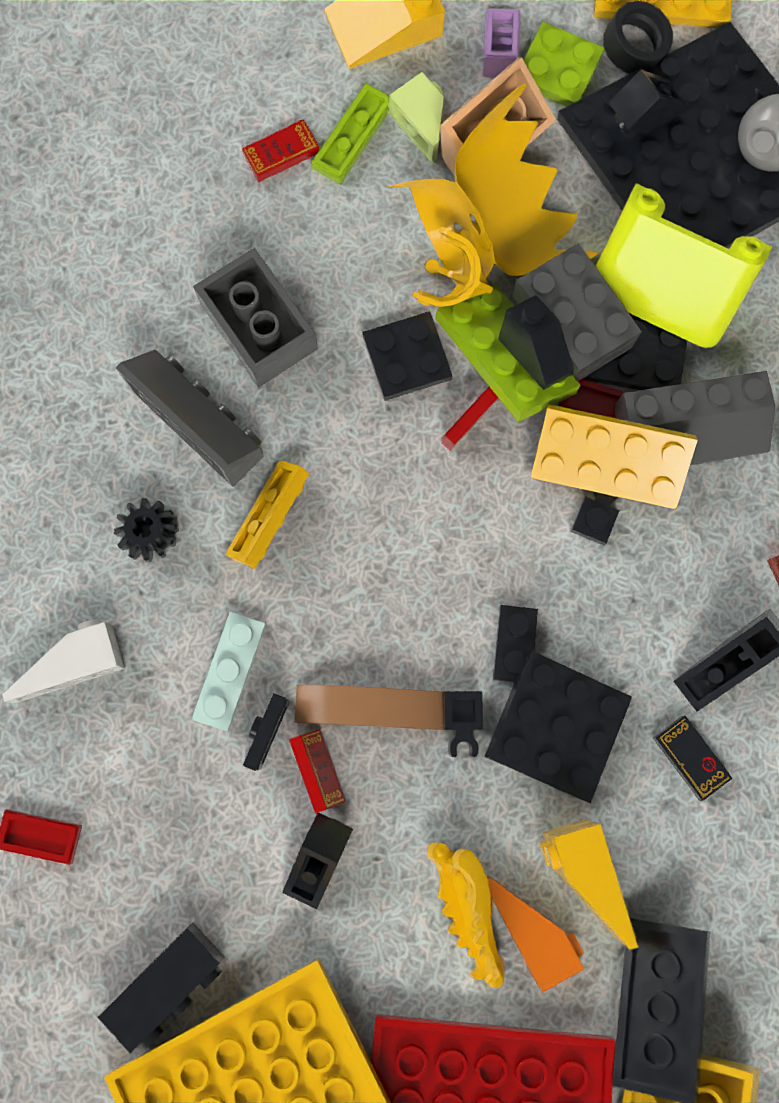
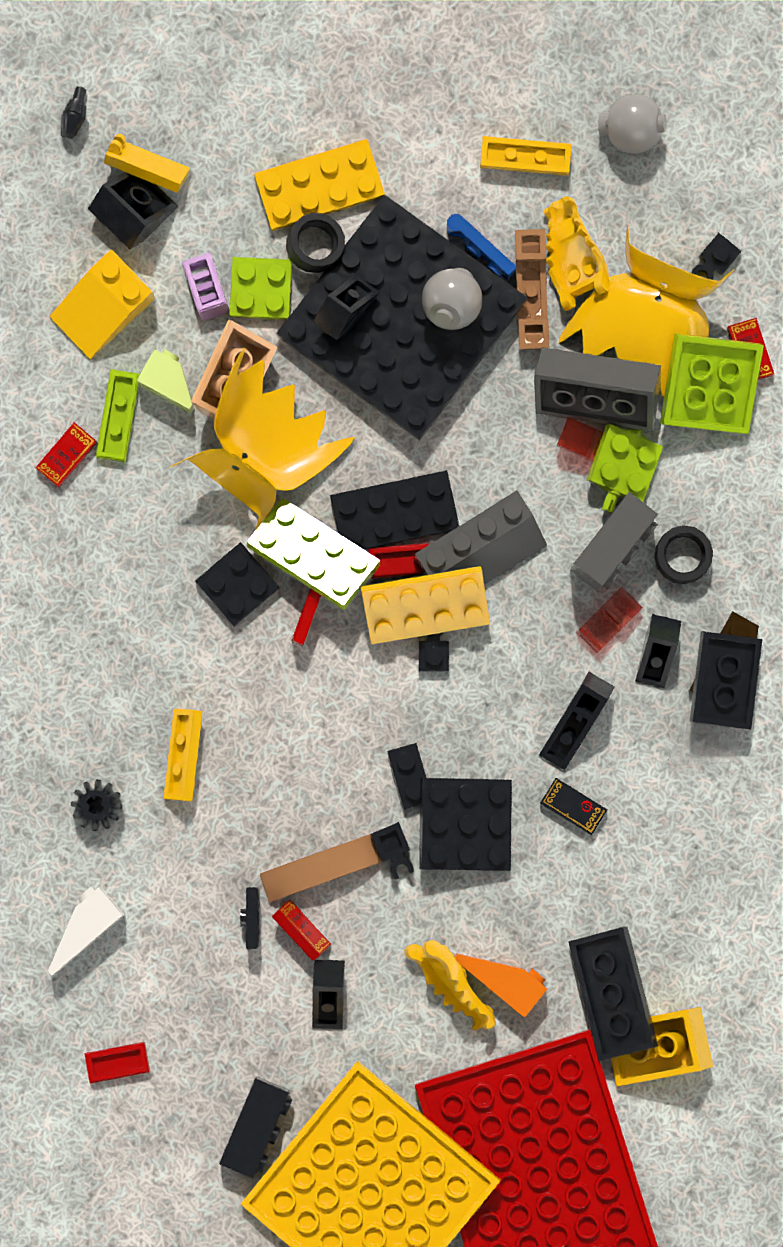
camera: 20 degrees left, 5 degrees up
(192, 415) = (94, 703): dark grey slope -> none
(229, 671) = (204, 884): light aqua plate -> none
(256, 317) = (109, 606): dark grey brick -> none
(471, 282) = (263, 516): yellow helmet -> none
(537, 342) = (334, 545): black slope -> none
(584, 863) = (519, 917): yellow slope -> none
(588, 310) = (354, 504): dark grey brick -> none
(676, 274) = (416, 446): neon yellow windscreen -> none

